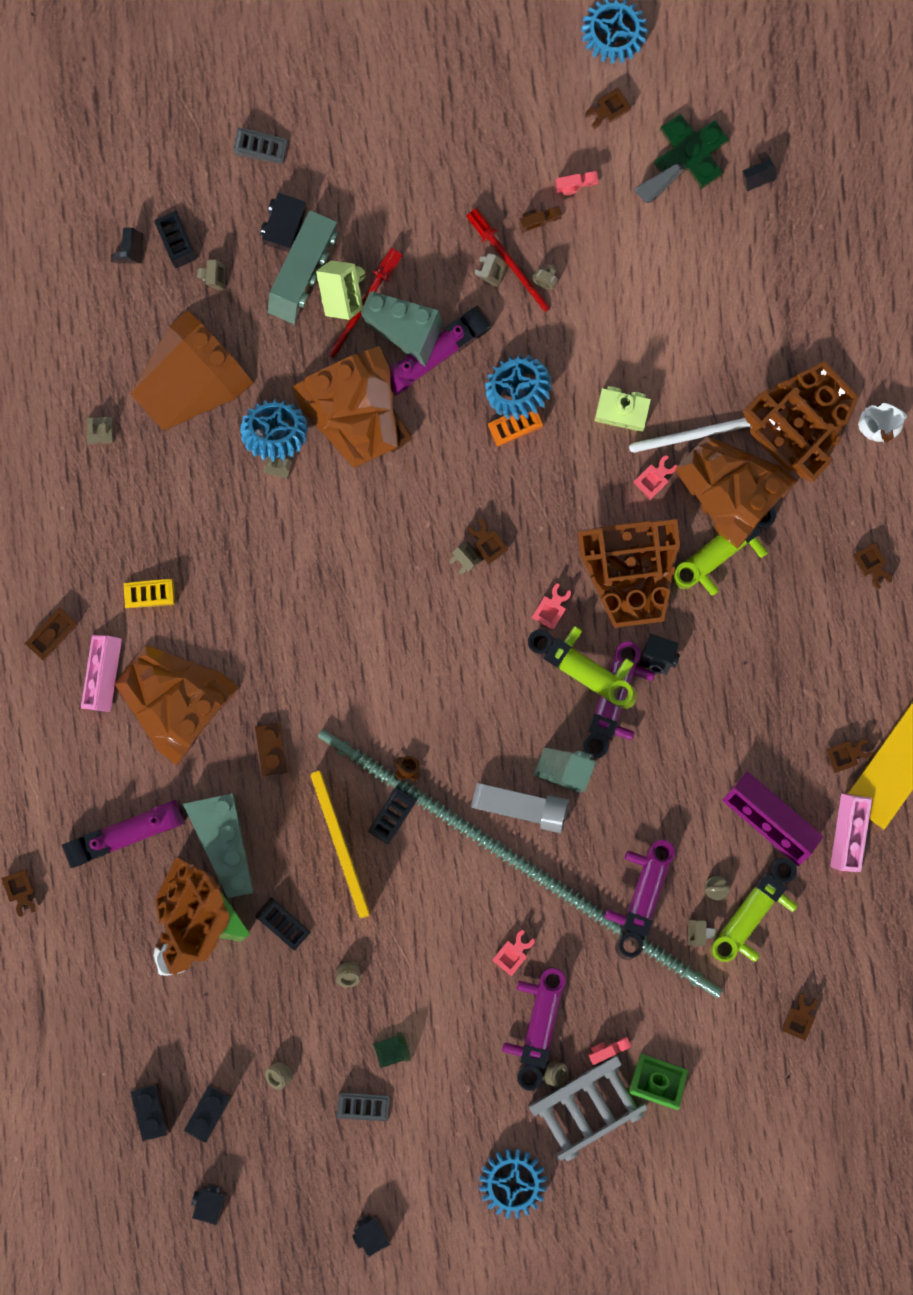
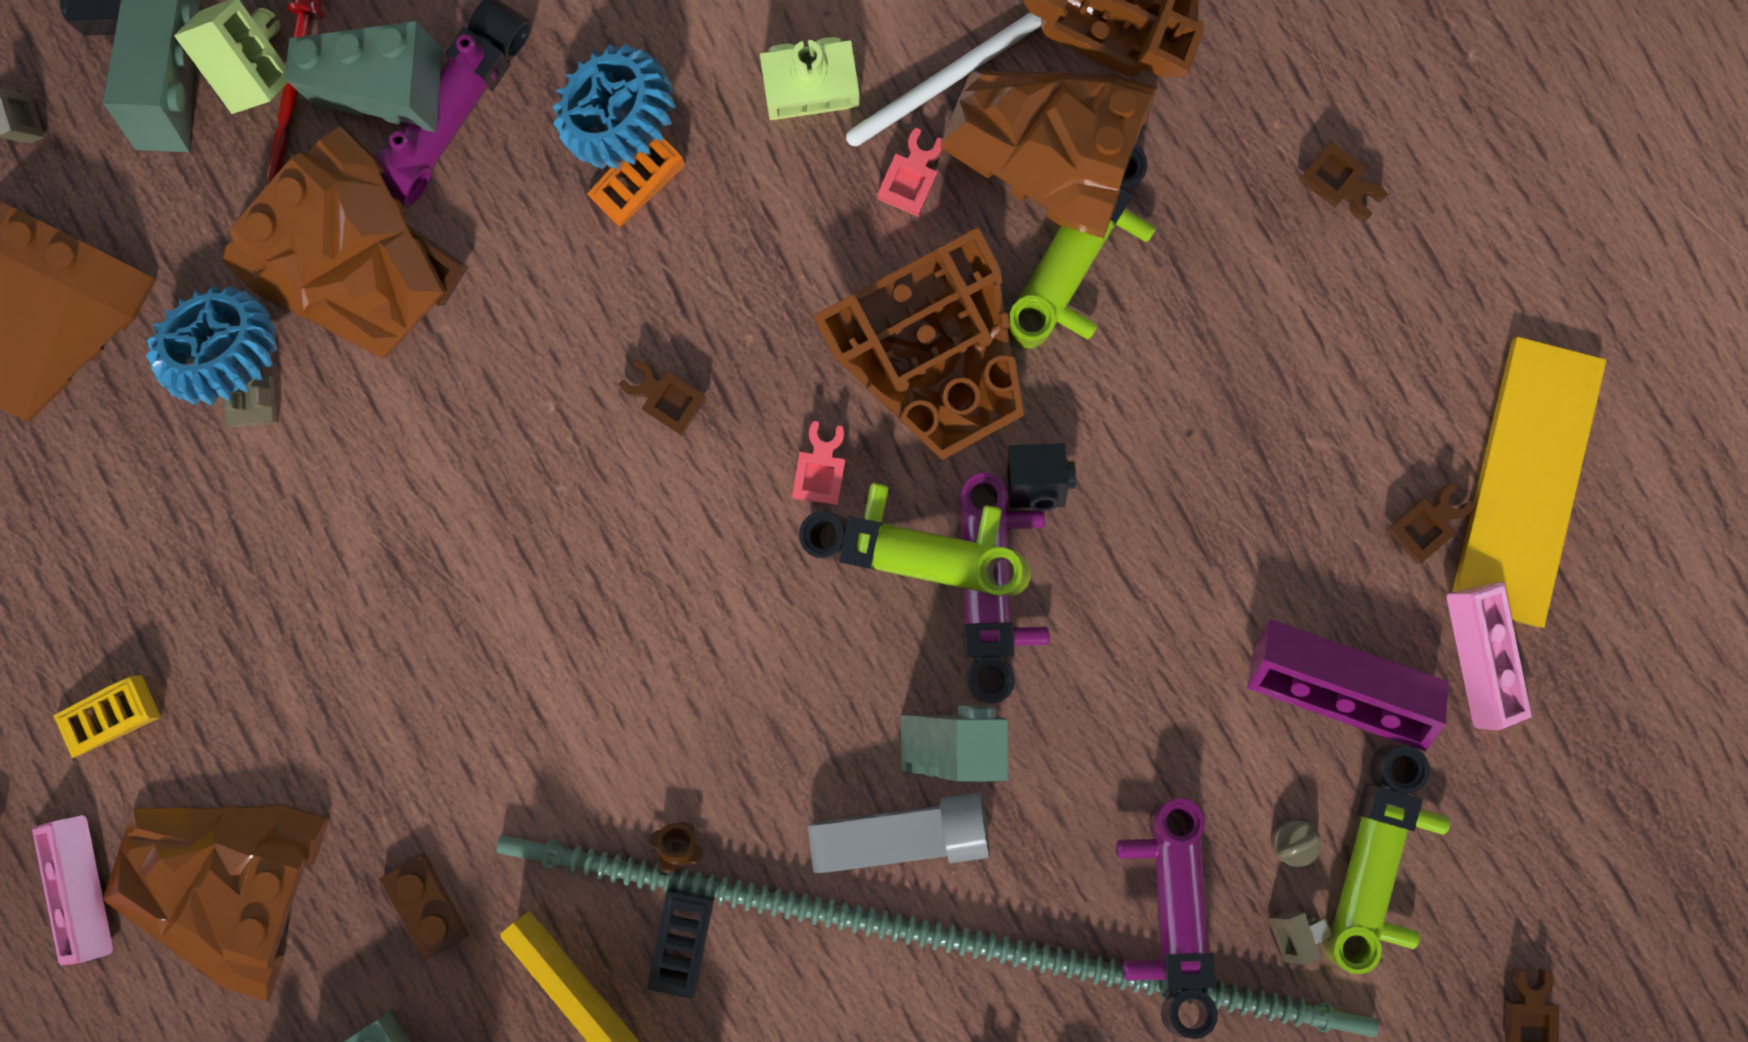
camera: 25 degrees left, 0 degrees up
(466, 556) = (638, 436): dark tan tile -> none

